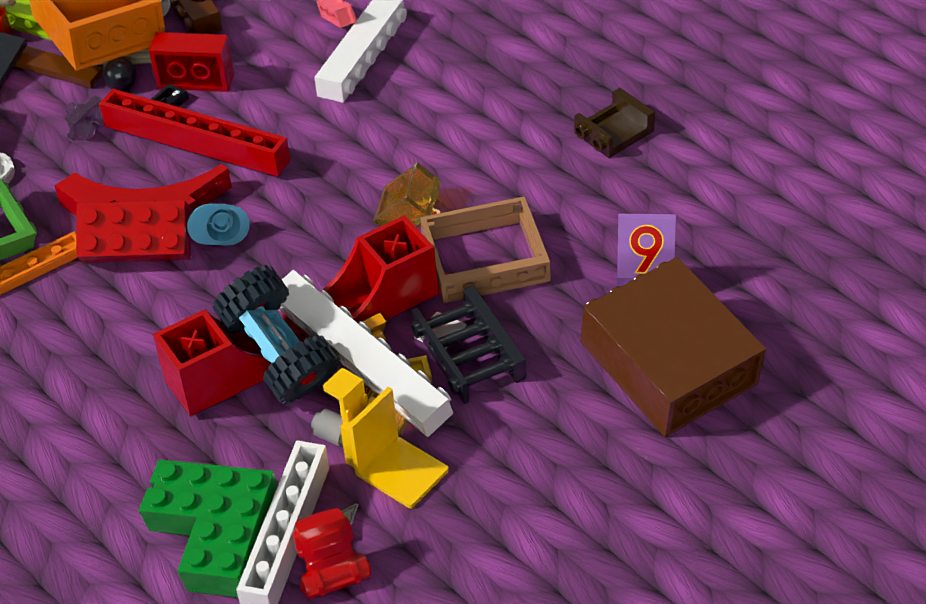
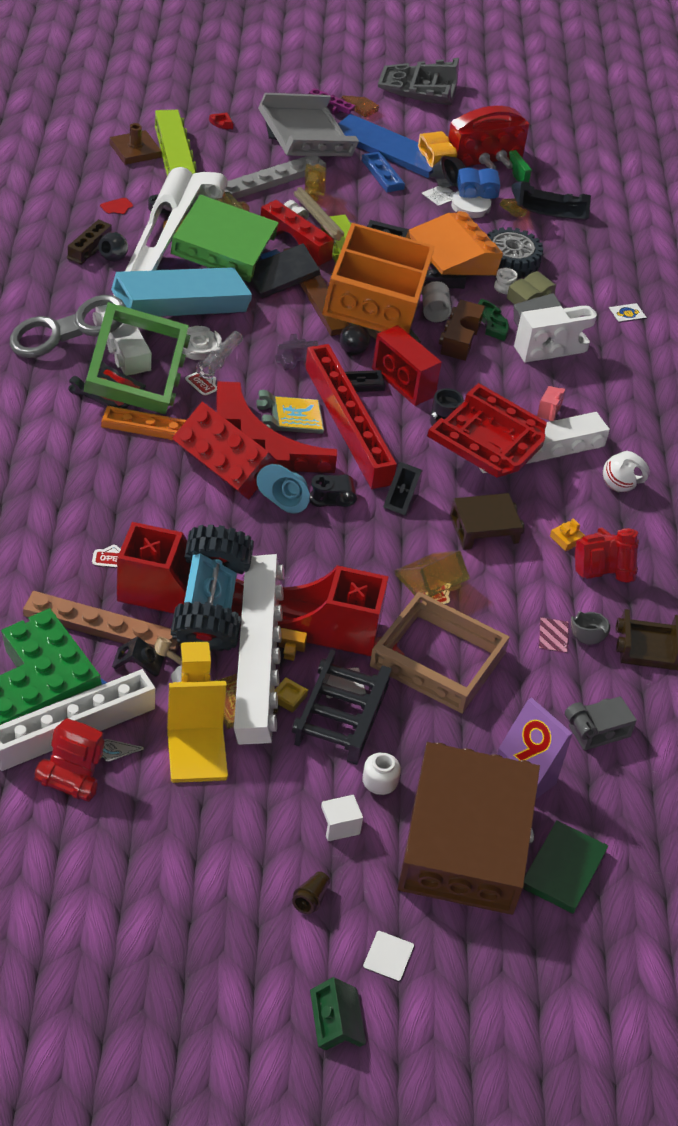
camera: 35 degrees right, 0 degrees up
(22, 172) = (215, 359): none -> clear pin
(34, 200) = (202, 385): none -> sticker
(138, 389) = (106, 556): none -> sticker
(140, 167) = (291, 413): none -> flag
(203, 441) = (98, 621): none -> nougat plate
(256, 197) = (335, 490): none -> black piece
(263, 73) = (444, 403): none -> black wheel
(265, 436) = (140, 653): none -> black bracket
(279, 416) = (162, 648): none -> tan hand
(306, 155) = (403, 488): none -> black slope
(327, 61) = (491, 432): none -> red wedge
(394, 131) = (485, 517): none -> dark brown panel
(448, 23) = (619, 471): none -> white helmet
(463, 97) = (567, 534): none -> light orange tile
(516, 85) = (608, 553): none -> red piece
(541, 175) = (553, 634): none -> clear pink sticker
(559, 365) = (381, 773): none -> white head
(564, 148) = (590, 627): none -> dark grey hair
(572, 416) = (342, 817): none -> white panel
(617, 490) = (310, 894): none -> dark brown cone
(655, 197) = (600, 722): none -> dark grey hinge
(716, 484) = (388, 955): none -> white sticker
(739, 553) = (337, 1014): none -> dark green panel
(758, 314) = (564, 866): none -> dark green tile

